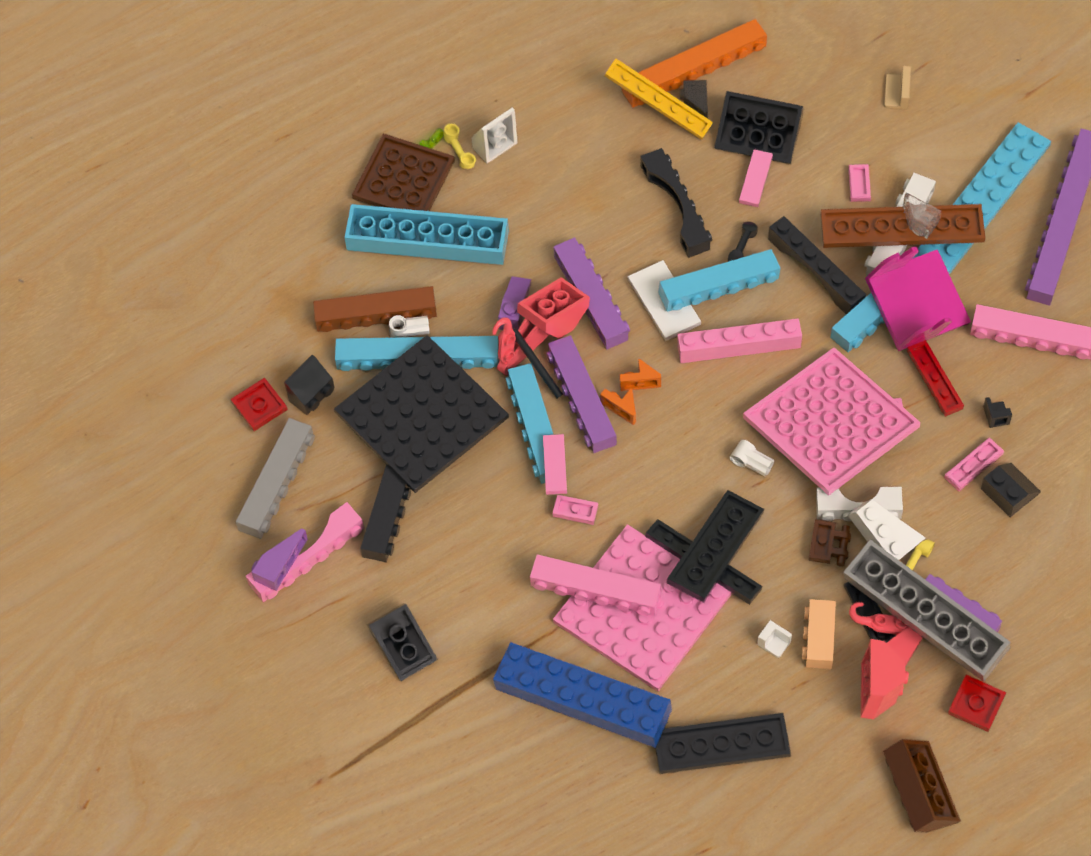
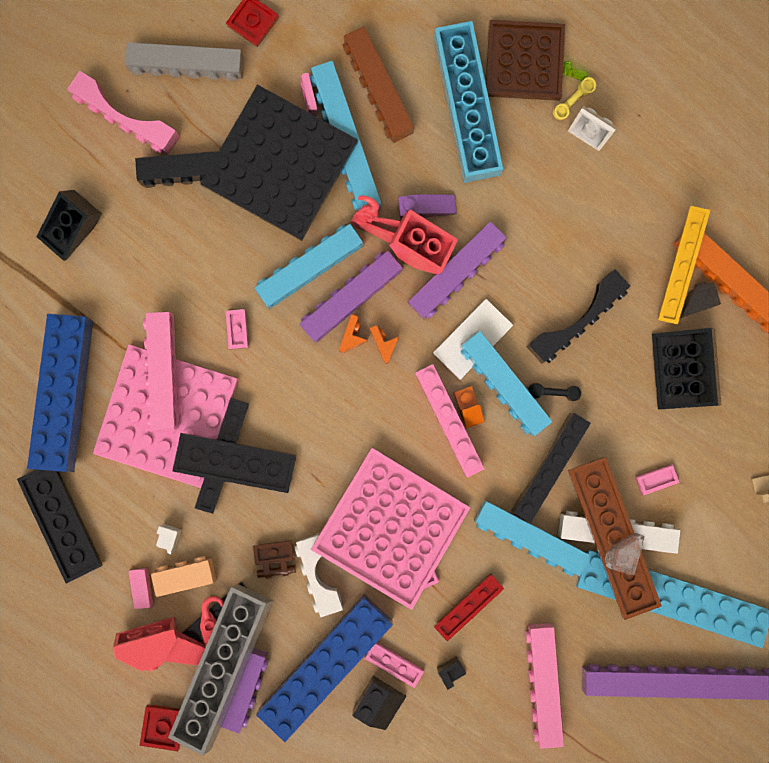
camera: 70 degrees right, 25 degrees up
(278, 560) = (88, 90): medium lavender slope -> none
(309, 385) = (279, 55): black slope -> none
(357, 373) = (308, 94): none -> bright pink tile
(410, 326) = (370, 123): white piece -> none
(537, 364) = (364, 246): black bar -> none
(554, 464) = (265, 297): bright pink tile -> none
(735, 318) = (469, 407): none -> orange slope
(747, 455) = (335, 463): white piece -> none
(756, 178) = (630, 382): bright pink tile -> none
(819, 683) = (141, 588): none -> bright pink slope
(885, 529) = (292, 609): white wedge -> none
(916, 297) = (537, 574): dark pink piece -> none
(921, 785) = (71, 701): reddish brown slope -> none
(924, 549) = (294, 645): light yellow bar -> none
(957, 525) = (324, 668): none -> blue brick

